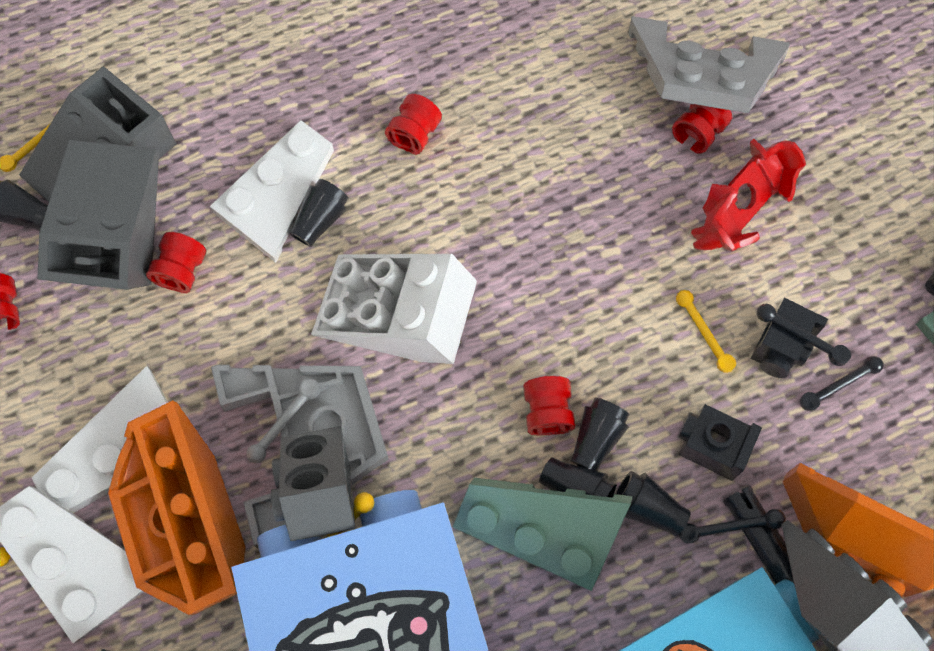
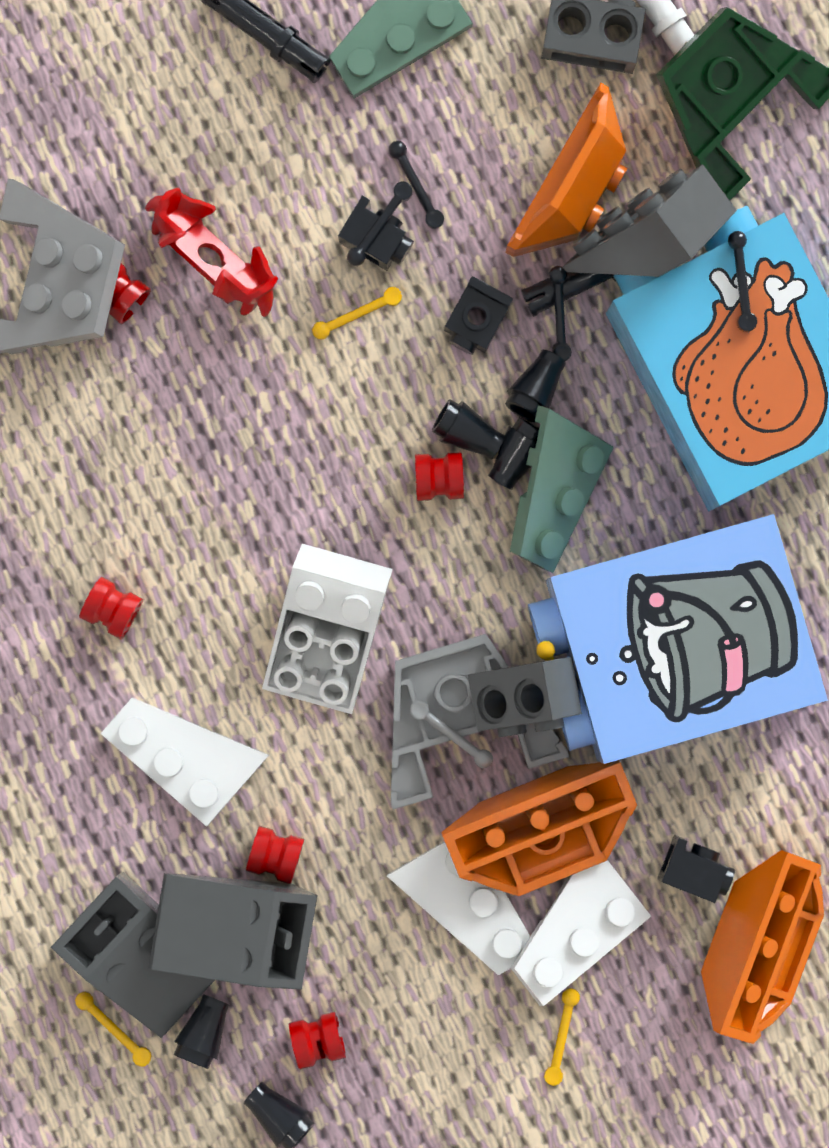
camera: 90 degrees left, 20 degrees up
(319, 210) = (216, 709): black cone -> none

